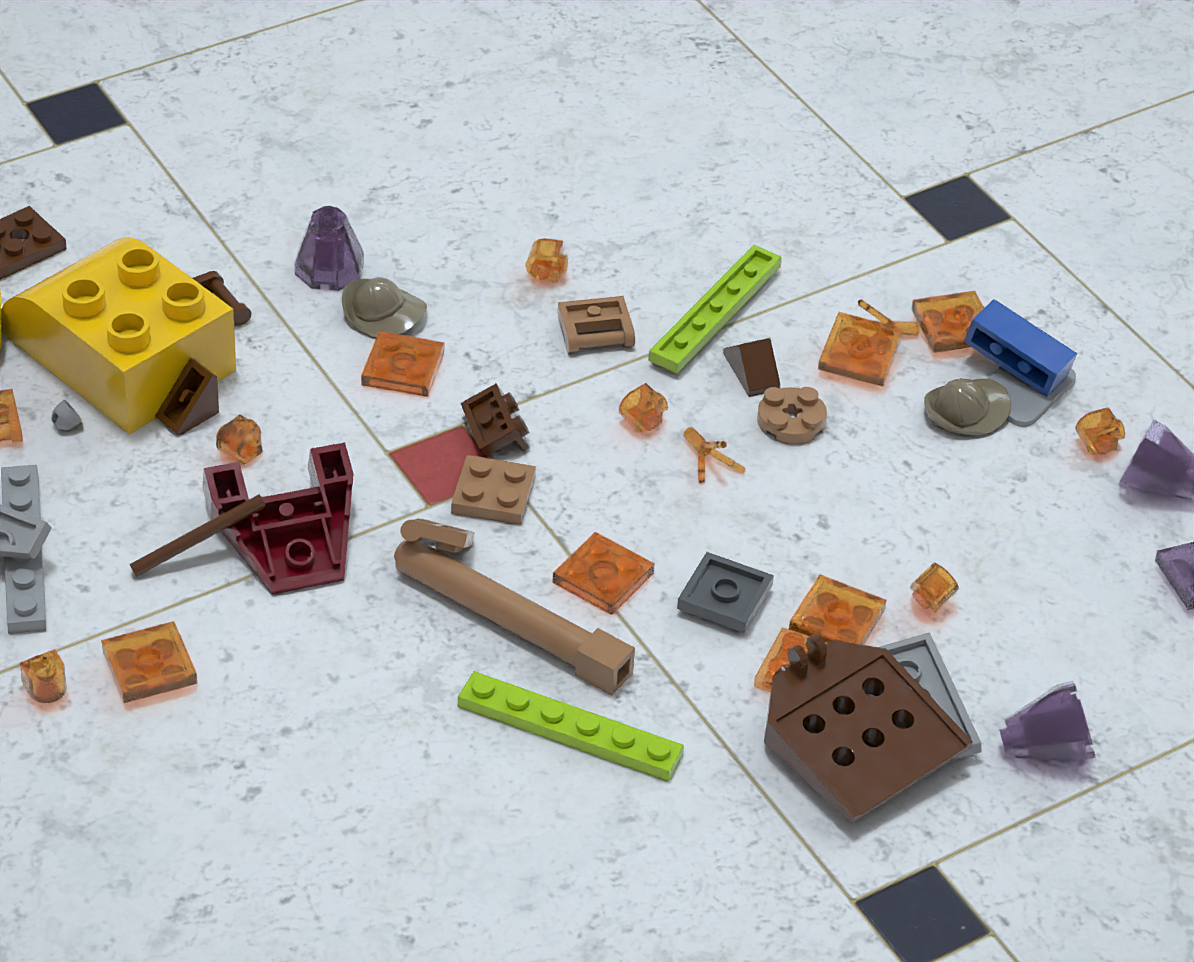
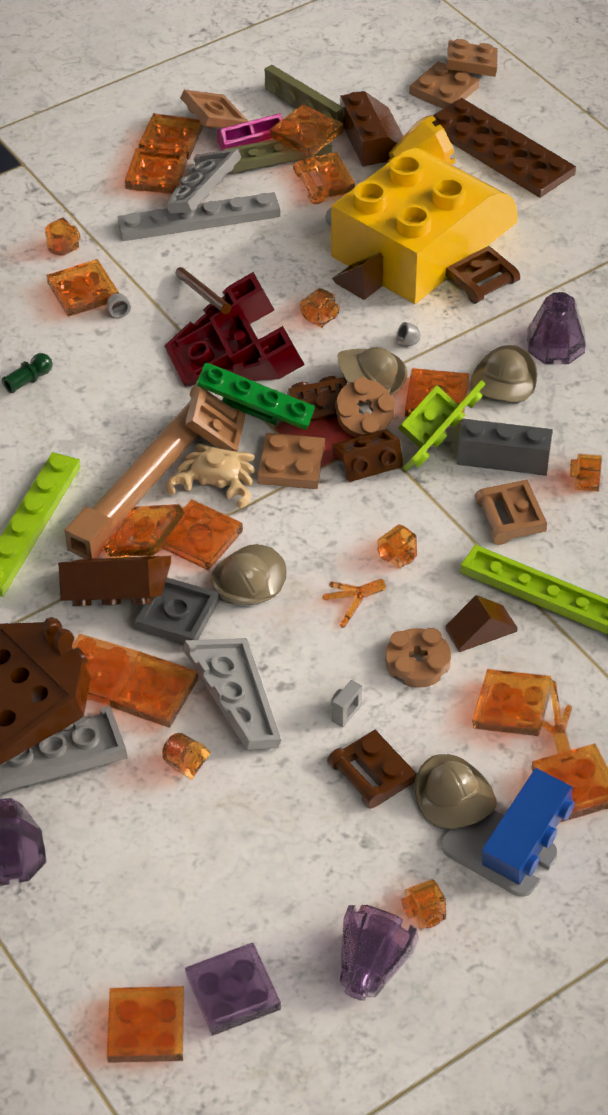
camera: 90 degrees right, 5 degrees up
(190, 628) = (118, 305): none -> light grey hinge
(293, 374) = (408, 334): none -> light grey hinge
(306, 718) = (39, 365): none -> dark green pin
(364, 397) = (375, 365): none -> dark tan hat
(402, 452) = (320, 394): none -> reddish brown bracket
(419, 487) = (255, 398): none -> green bracket
(431, 412) = (368, 392): none -> medium nougat plate
(466, 353) = (431, 418): none -> lime bracket
(494, 314) = (504, 446): none -> dark grey slope
(505, 550) = (217, 469): none -> tan animal
(613, 602) = (144, 530): none -> clear orange plate
(669, 535) = (250, 575): none -> dark tan hat
(686, 630) = (113, 579): none -> reddish brown slope
(833, 548) = (236, 687): none -> light grey wing
(861, 465) = (346, 703): none -> light grey plate
(932, 452) = (379, 762): none -> reddish brown plate

